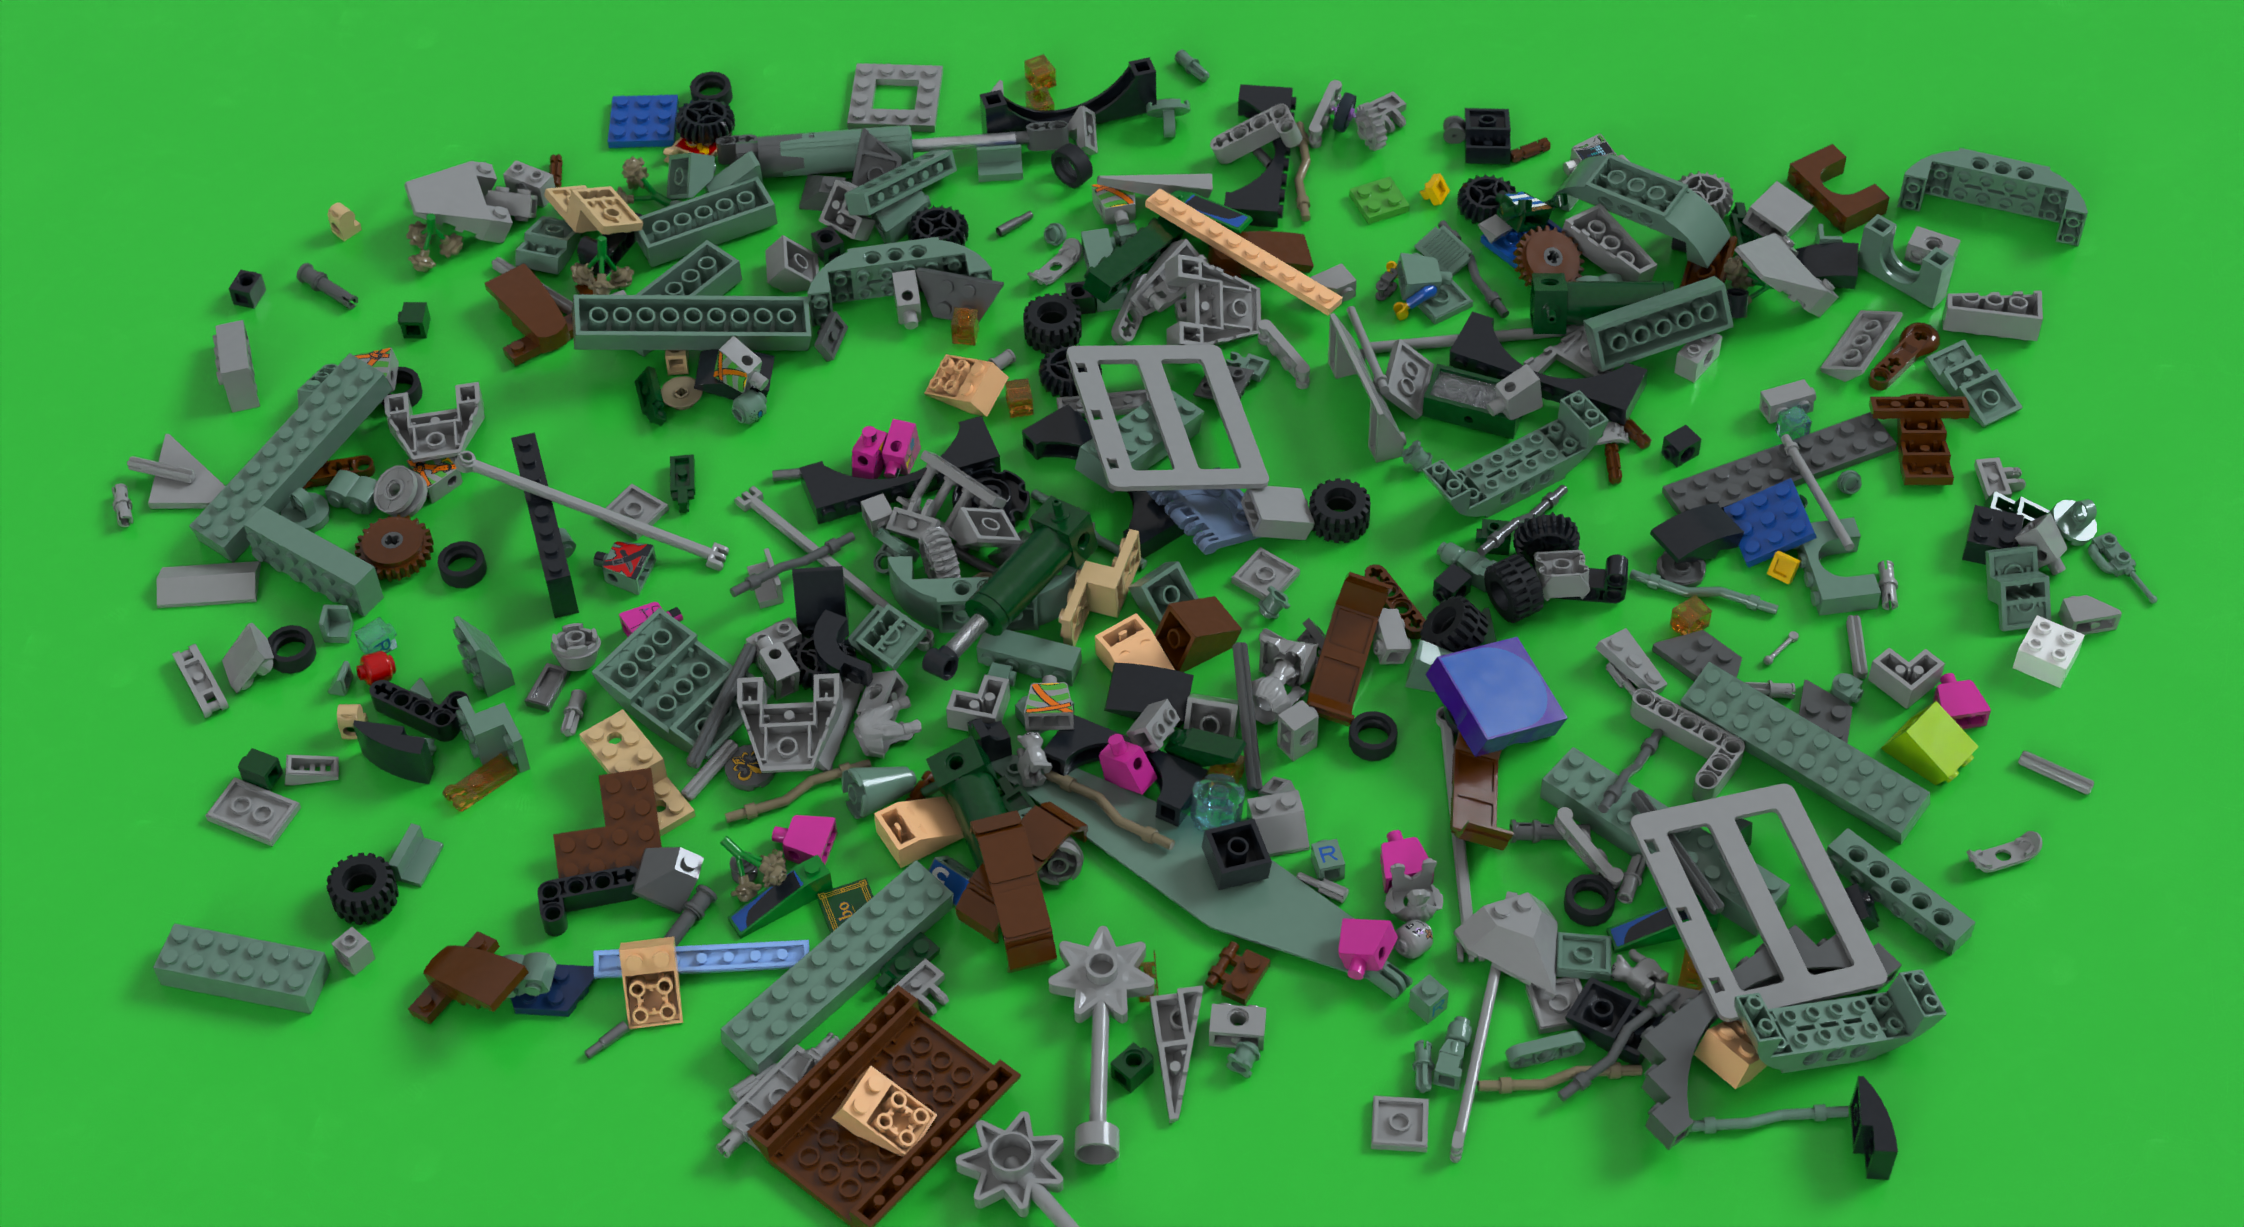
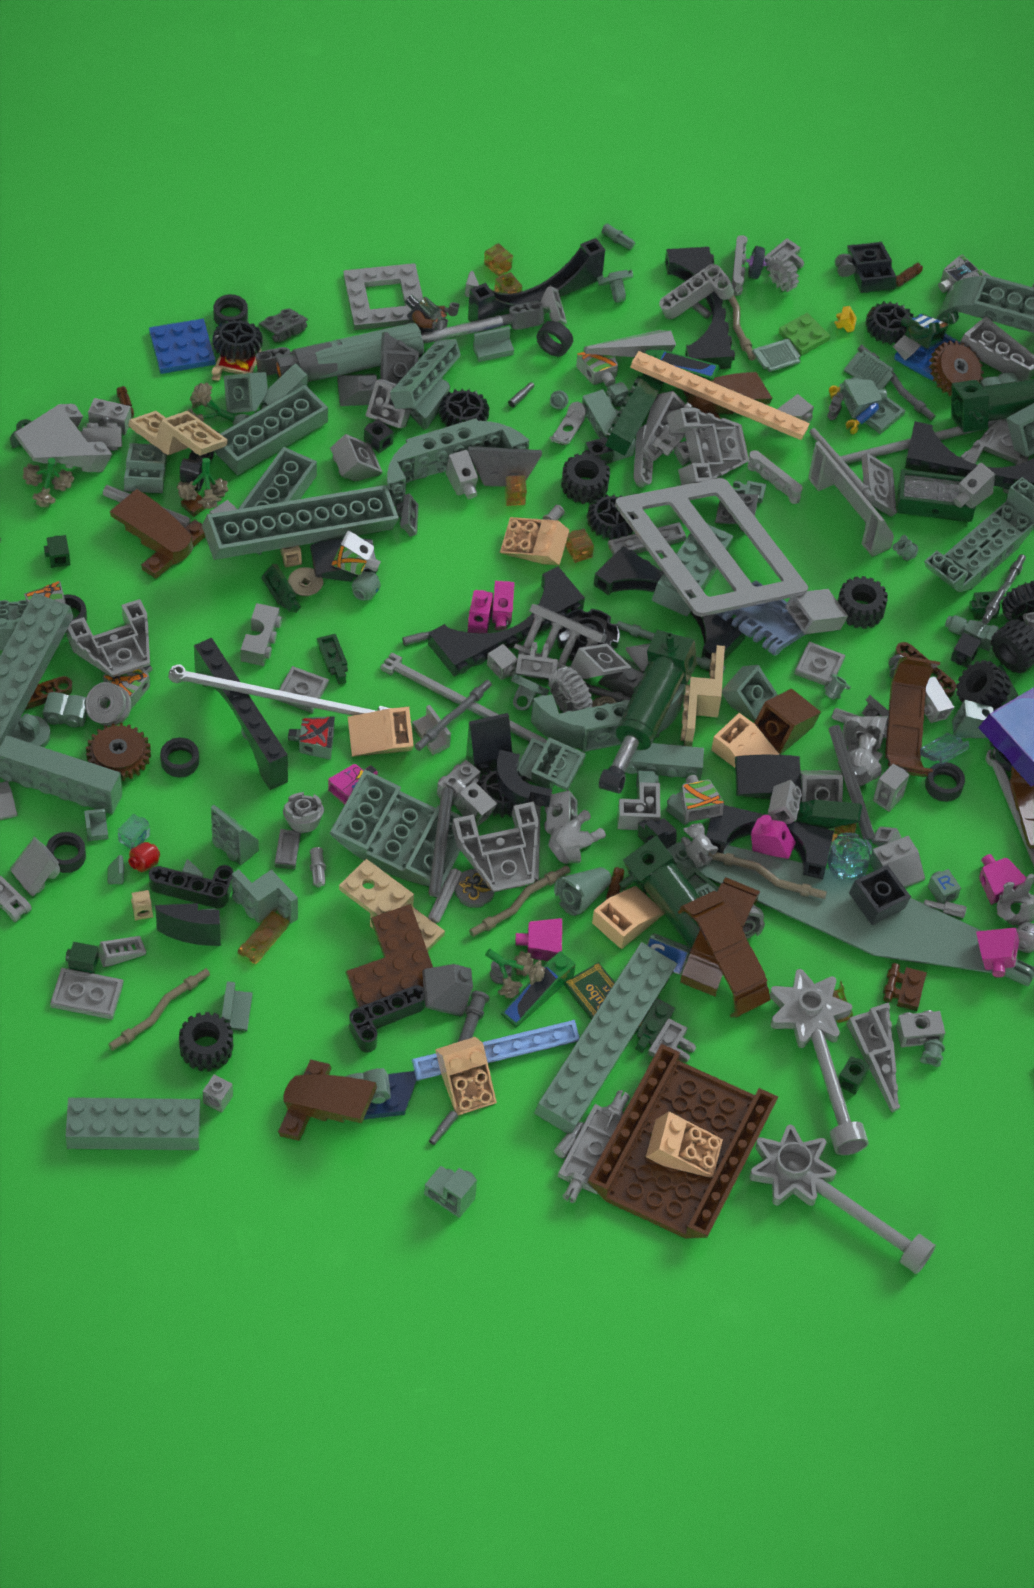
camera: 20 degrees left, 5 degrees up
(280, 866) = (129, 1034): none -> dark tan bar
(585, 1115) = (452, 1189): none -> sand green brick
(599, 457) = (258, 647): none -> light grey arch
(702, 570) = (381, 732): none -> light nougat slope
(774, 105) = (285, 324): none -> dark grey hinge
(930, 120) = (428, 315): none -> torso
(1336, 219) = (777, 355): none -> sand green window
(1384, 696) = (944, 748): none -> clear light blue plate

